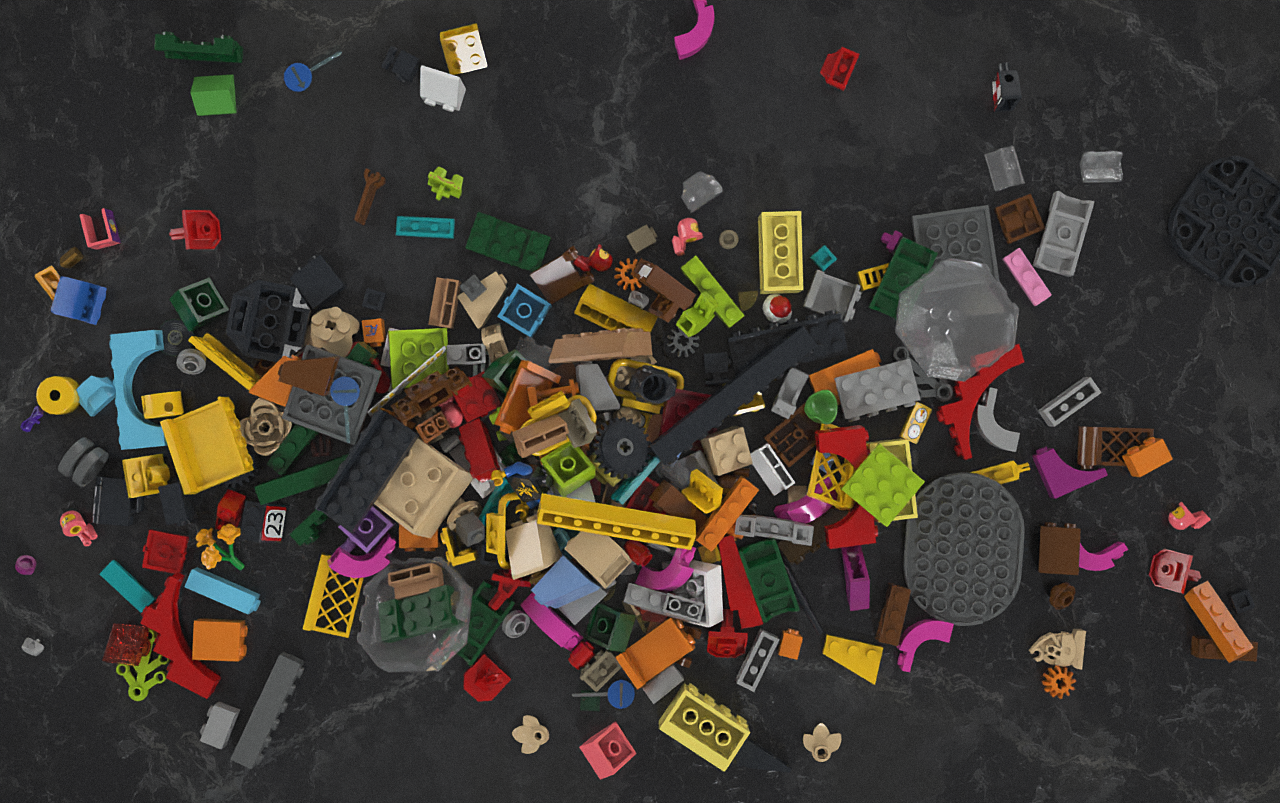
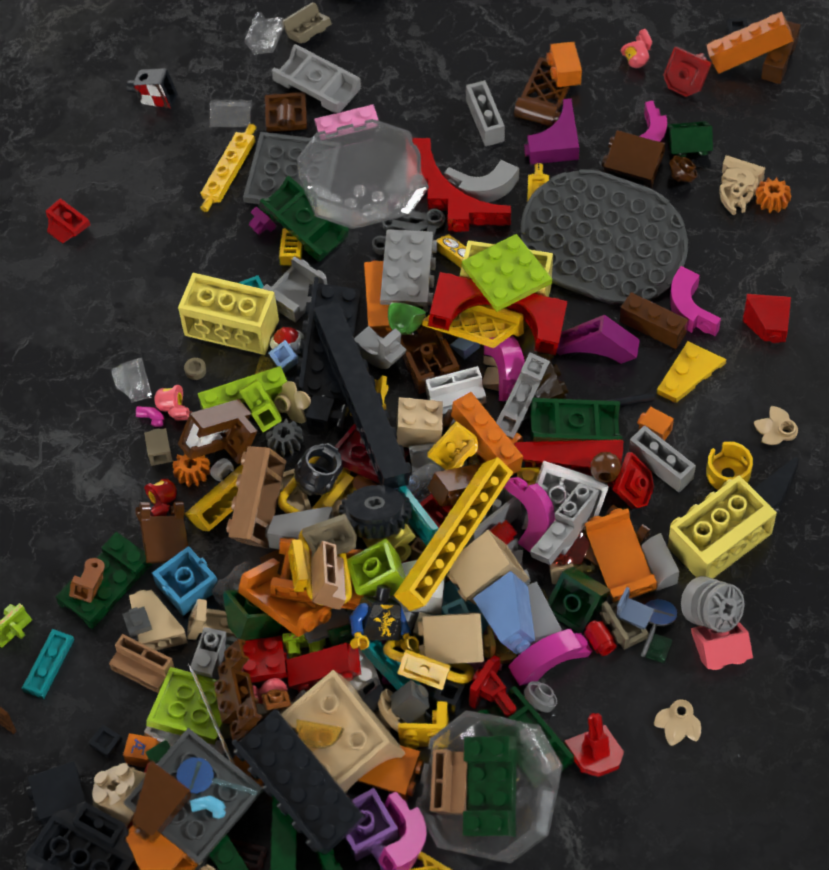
camera: 65 degrees left, 30 degrees down
(325, 411) = (210, 803): none -> medium azure arm
(405, 474) = (317, 734): none -> clear yellow tile
(468, 496) = (371, 693): none -> black slope
(504, 234) = (90, 581): none -> dark orange leg
(608, 678) = (633, 611): none -> sand blue bracket
(631, 738) = (712, 604): none -> light grey wheel
(672, 222) = (152, 413): none -> dark pink arm
(717, 332) = (292, 402): none -> tan plate
(728, 619) = (605, 467): none -> reddish brown piece
(759, 312) = (284, 356): none -> light blue slope
(772, 726) = (729, 457): none -> yellow piece
(922, 712) = (767, 316): none -> red slope
(944, 189) = (228, 167): none -> yellow plate
(1100, 591) = (689, 138): none -> dark green slope
(1124, 201) = (305, 23): none -> dark tan bracket

